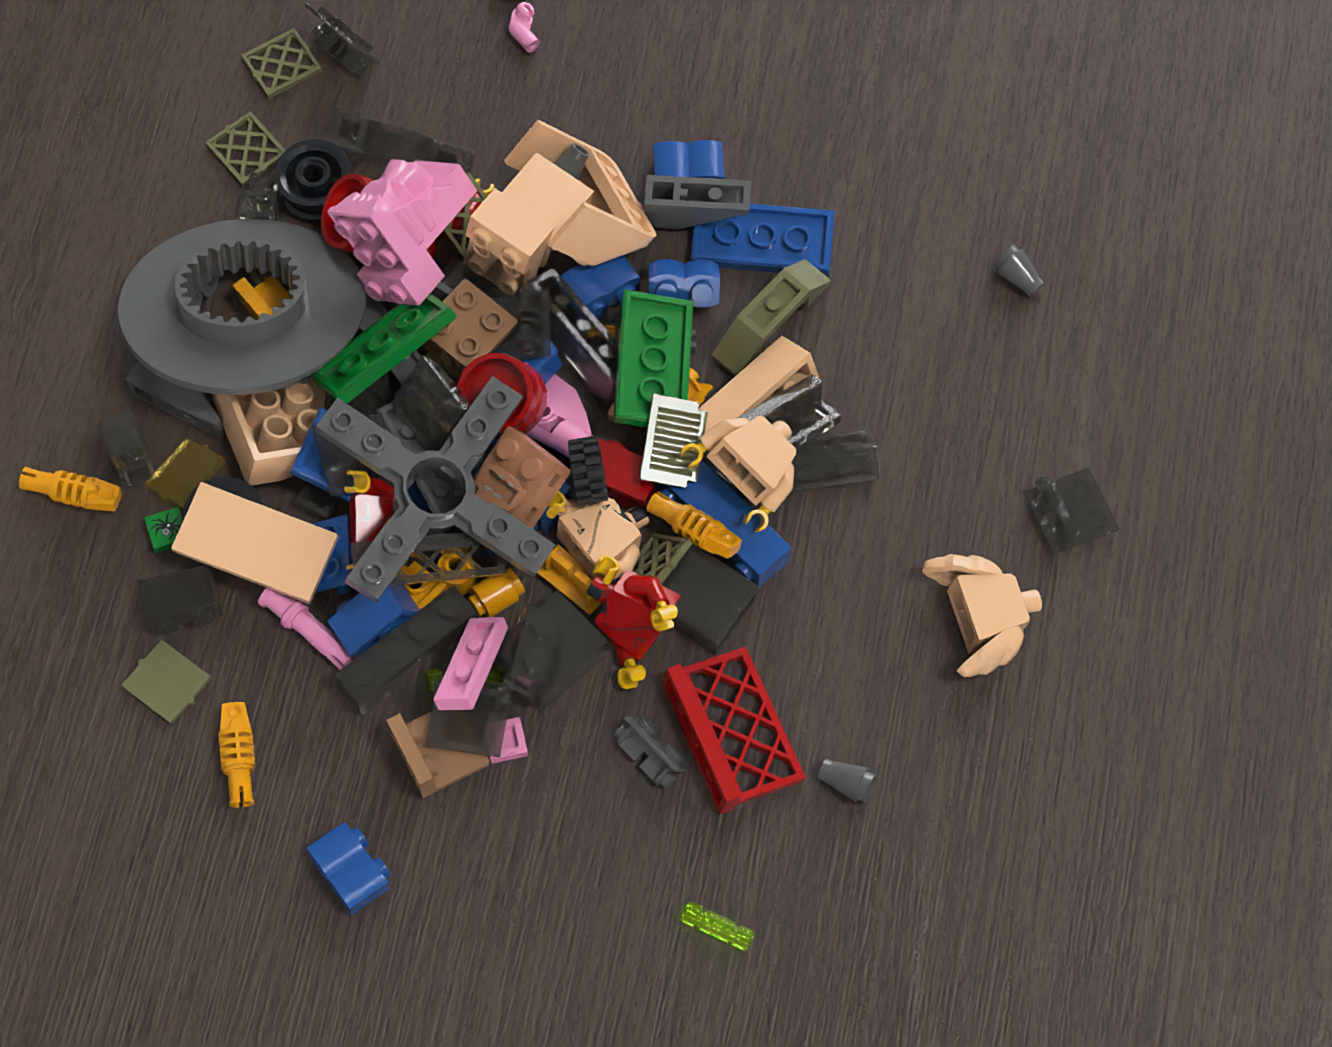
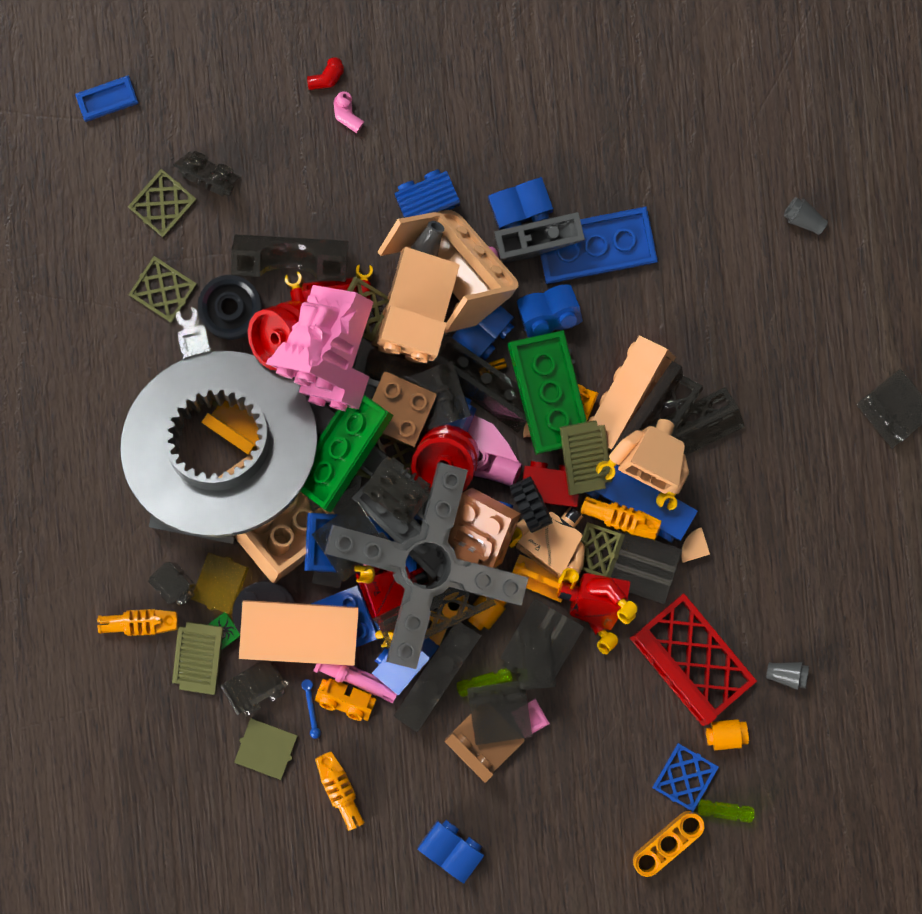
camera: 15 degrees left, 20 degrees up
(126, 549) = (198, 657): none -> olive window
(245, 622) = (307, 686): none -> blue hinge
(271, 641) = (355, 706): none -> light orange hinge
(471, 663) = (493, 682): bright pink plate -> none
(590, 125) = (429, 196): none -> blue brick
(641, 739) = (650, 700): dark grey hinge -> none
(642, 927) = (663, 857): none -> light orange beam
(660, 851) = (674, 796): none -> blue window
(747, 829) = (727, 734): none -> light orange brick
(767, 312) = (625, 317): olive slope -> none
(775, 597) = (694, 546): none -> light nougat tile
(986, 608) = (856, 513): light nougat torso -> none

